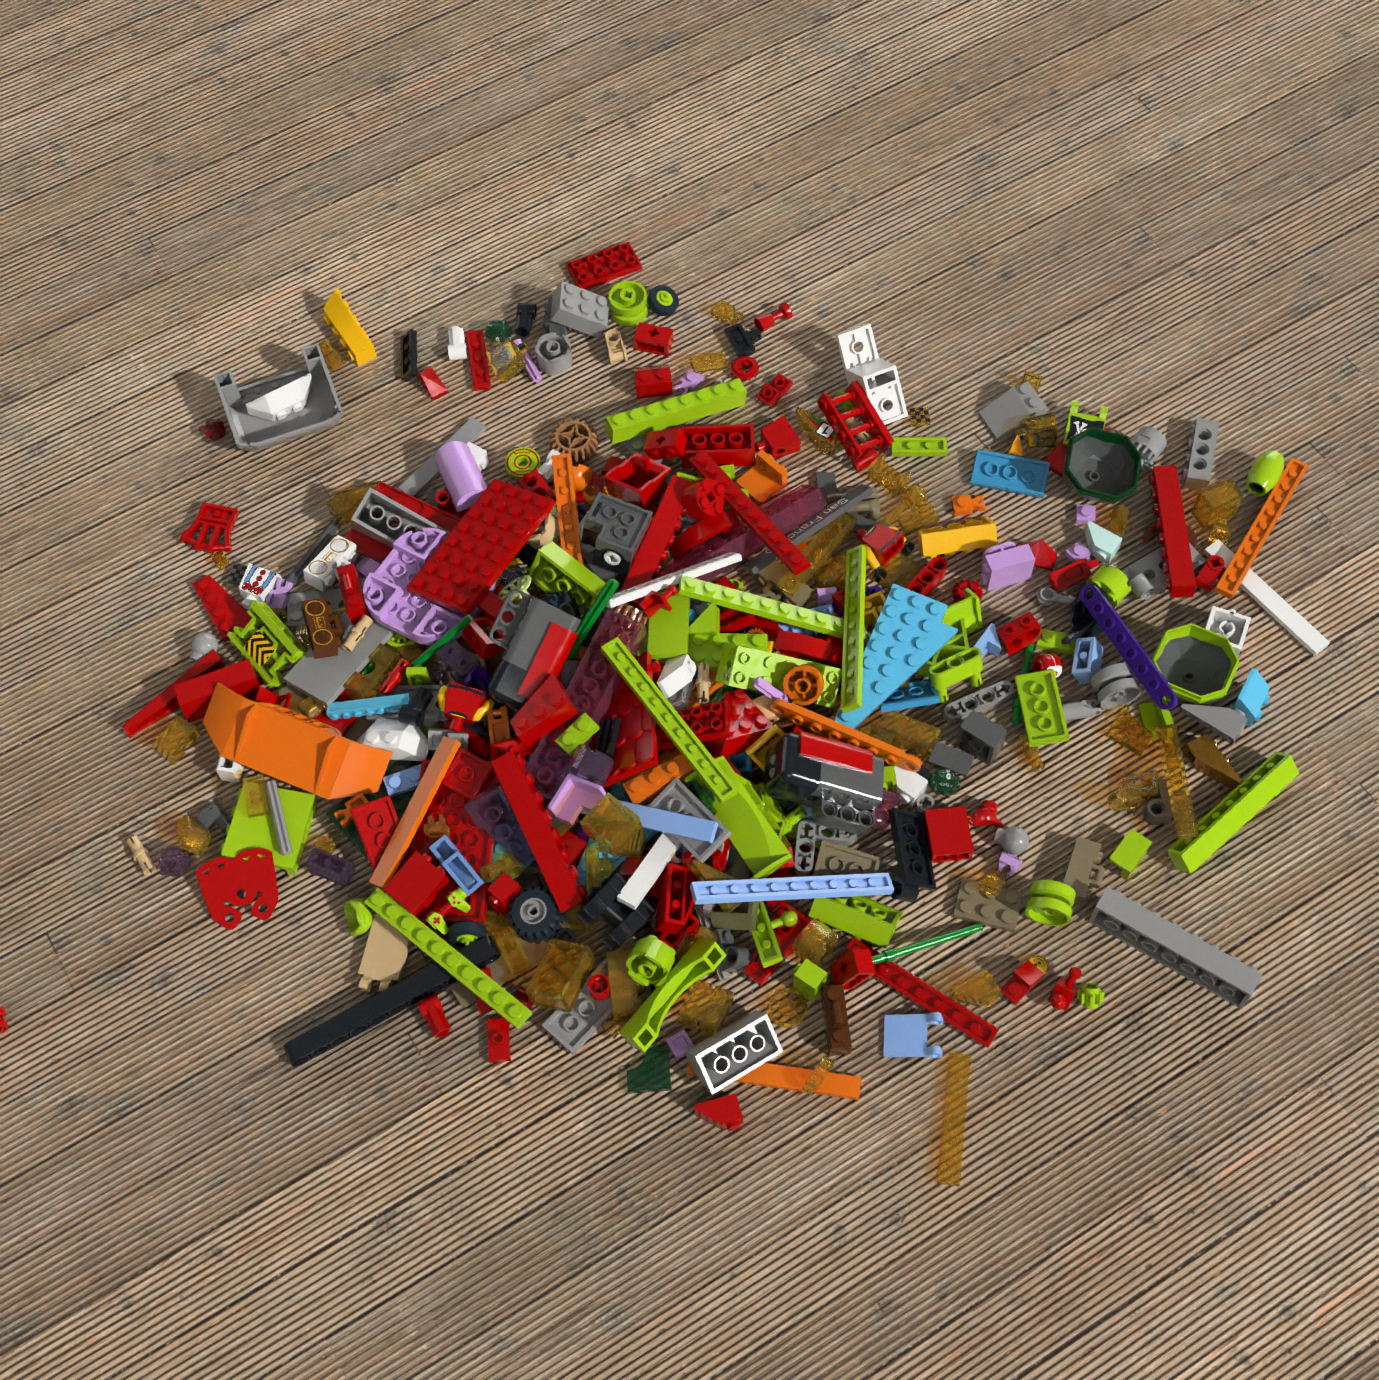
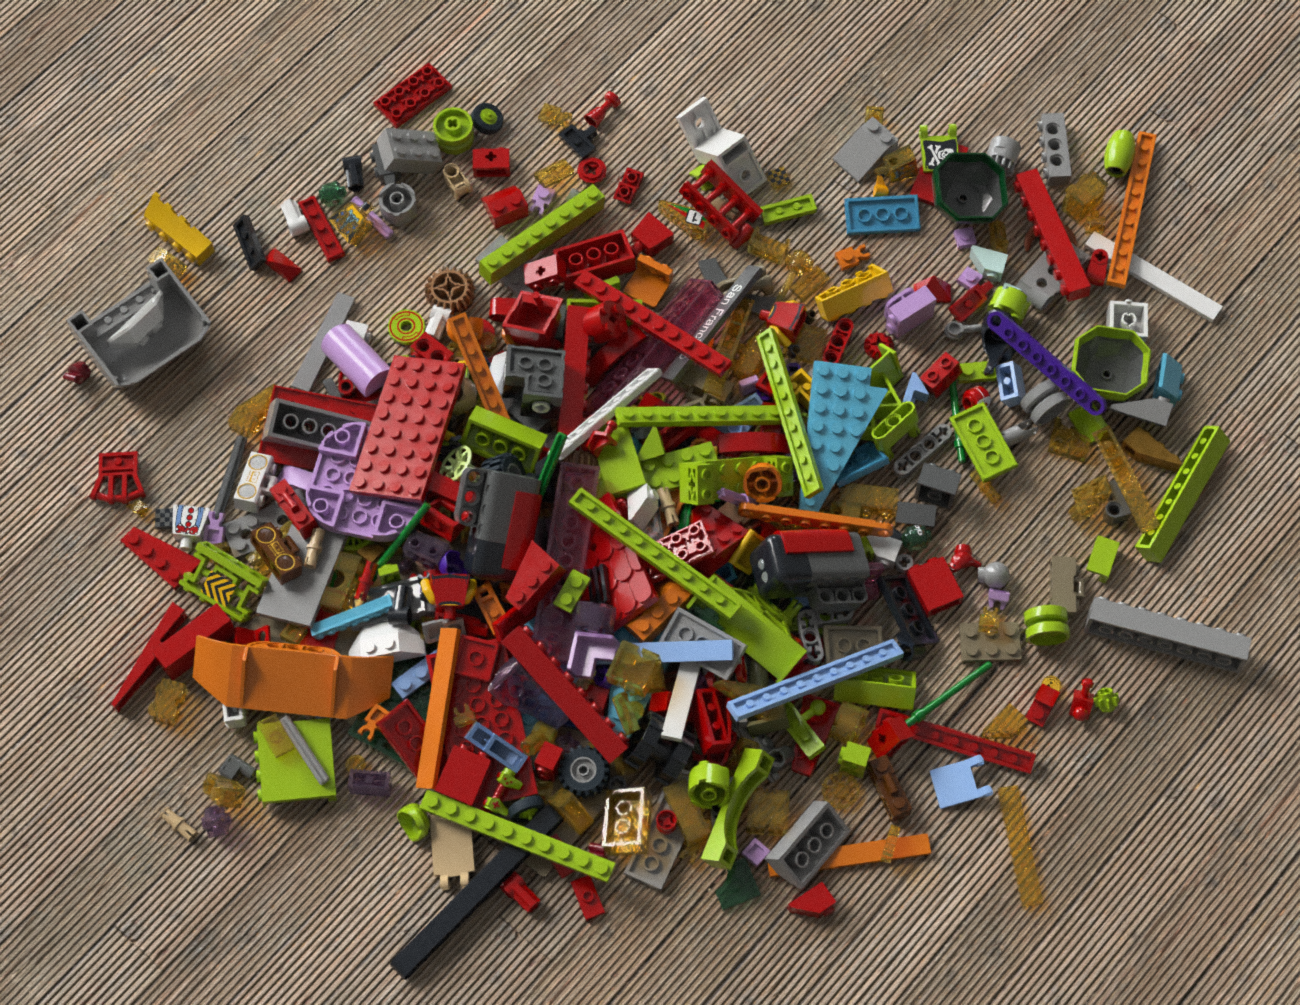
camera: 20 degrees left, 5 degrees up
(202, 645) = (158, 601): light grey piece -> none
(235, 875) = (286, 815): red piece -> none

